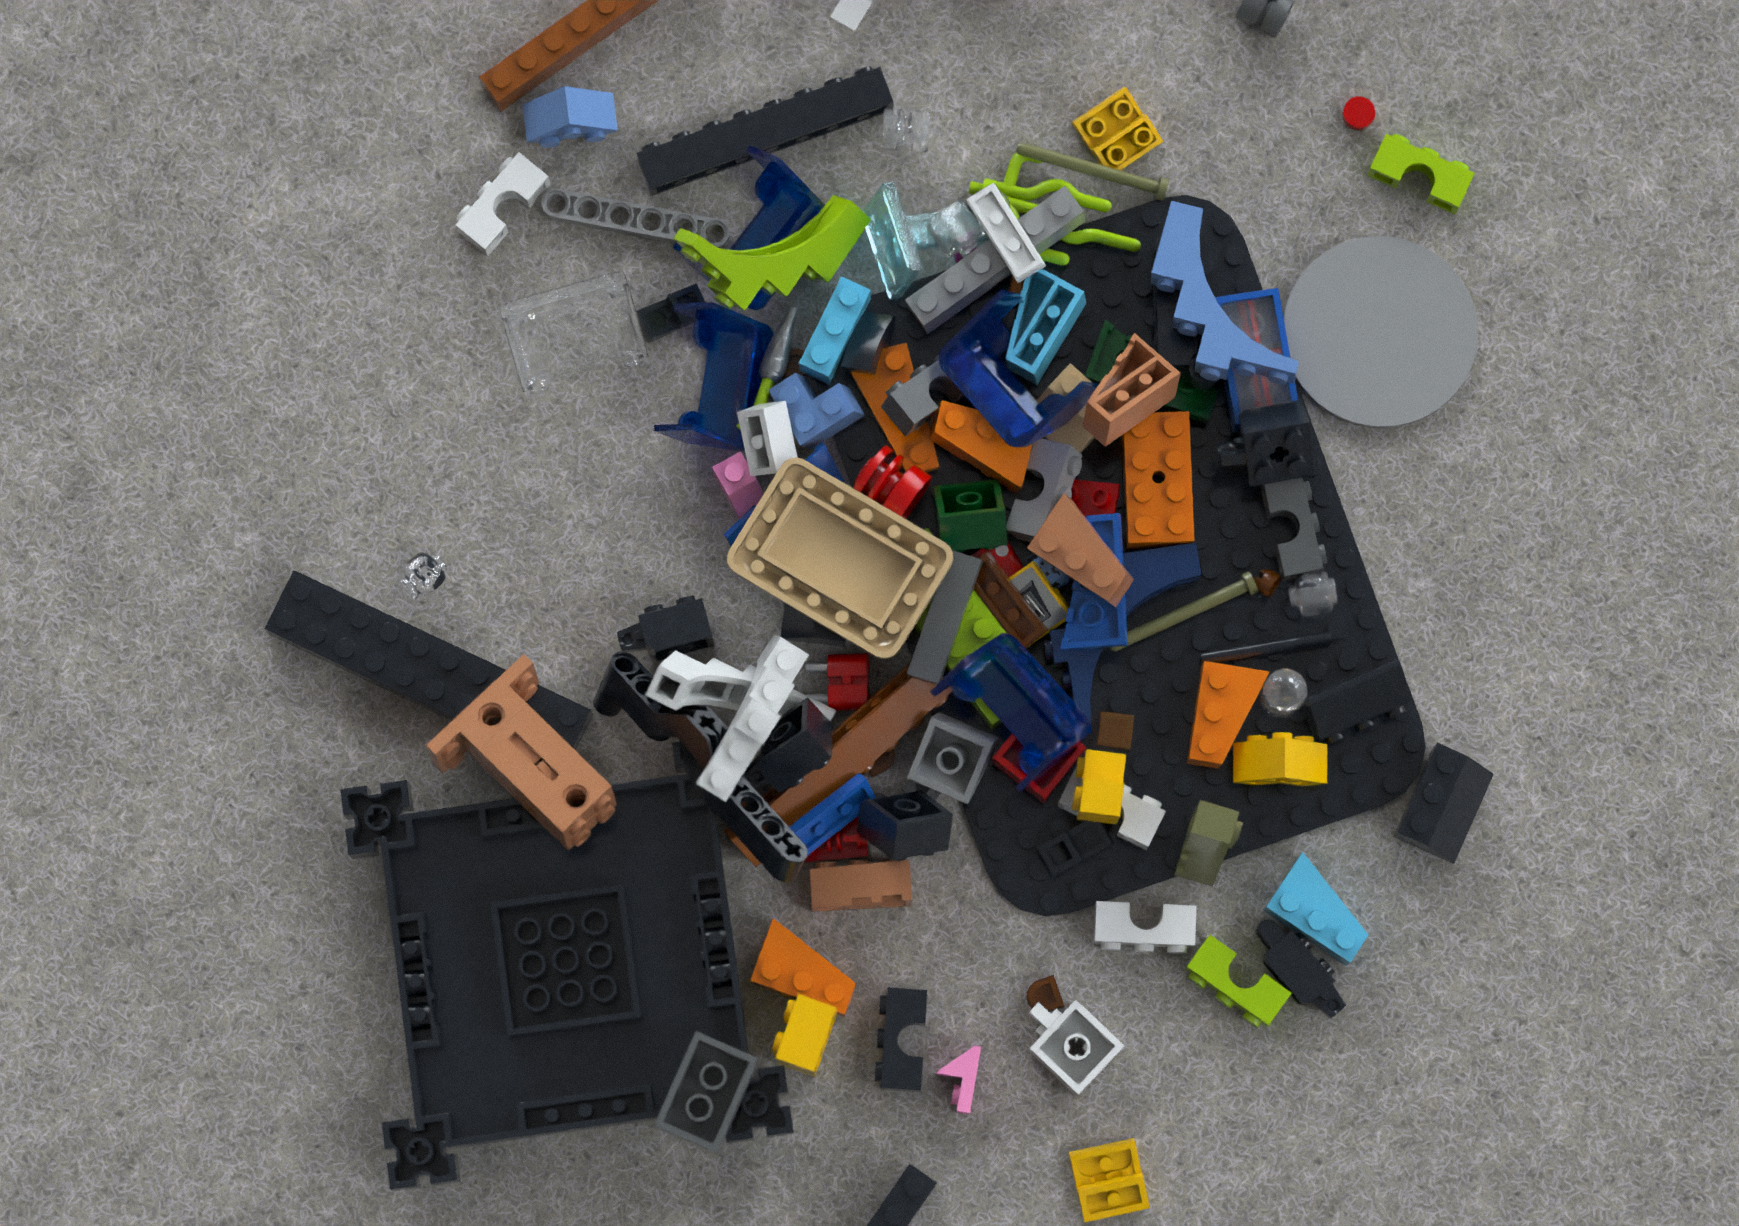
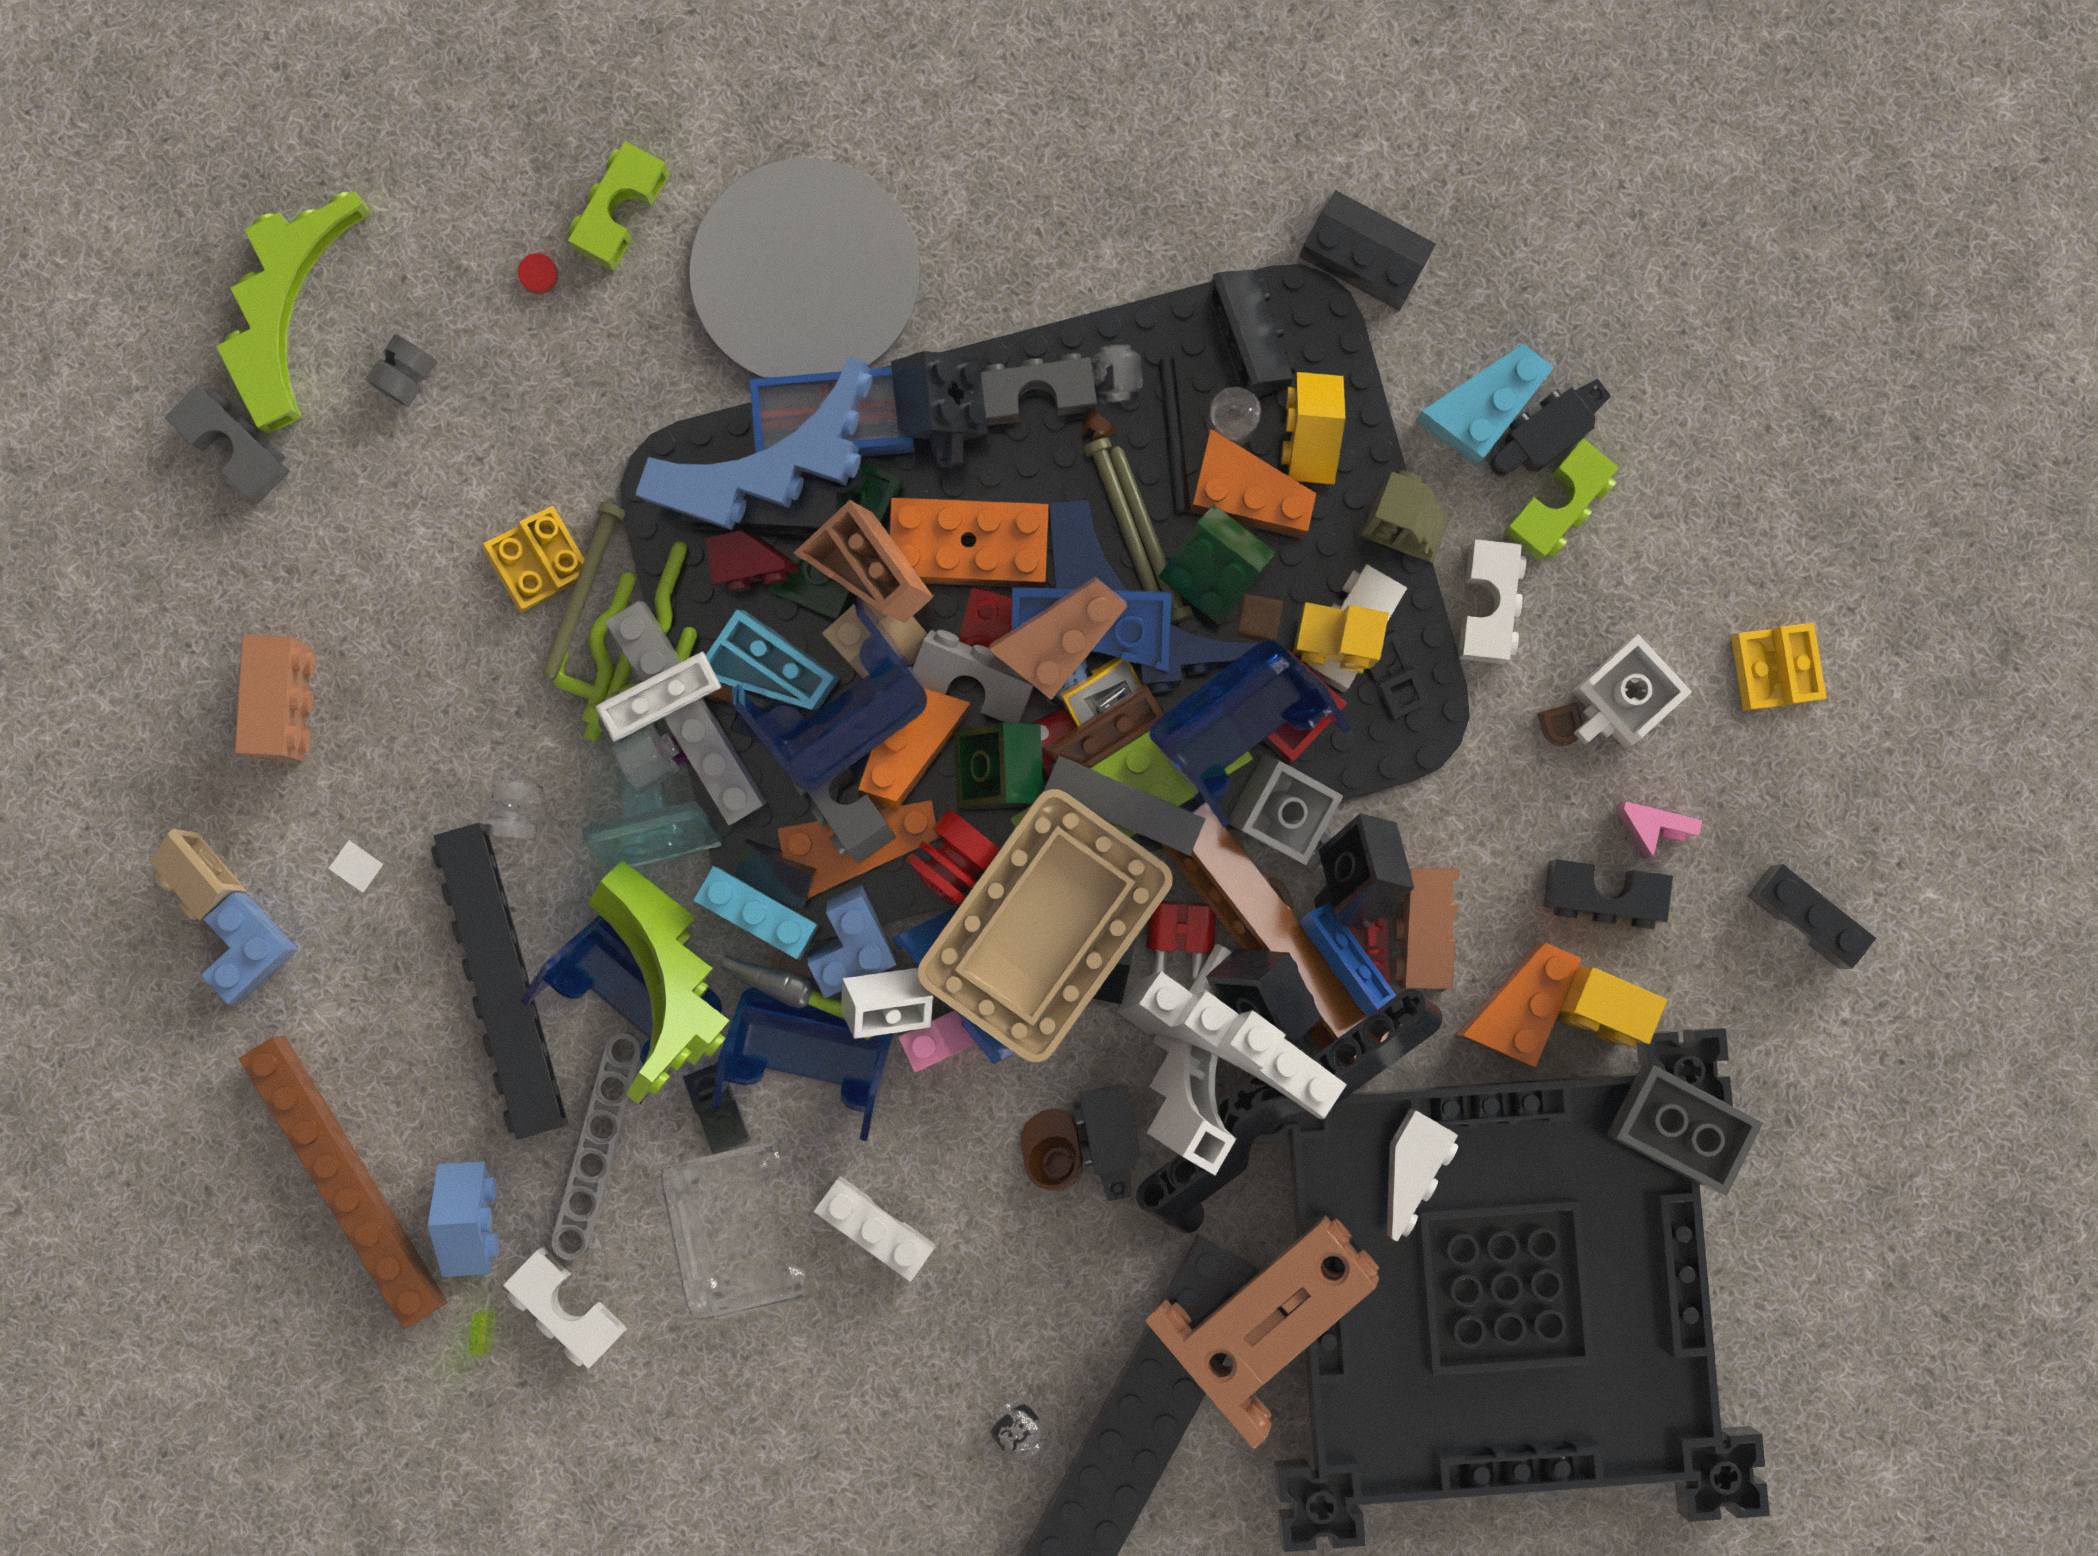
camera: 90 degrees left, 5 degrees up
(479, 140) = (482, 1331): none -> clear neon green tile
(580, 445) = (874, 1229): none -> white arch
(654, 585) = (1051, 1150): none -> reddish brown cap
(665, 871) = (1414, 1160): none -> white slope
(1113, 660) = (1147, 533): none -> olive bar
(1129, 298) = (746, 558): none -> dark red slope
(1154, 684) = (1216, 564): none -> dark green brick

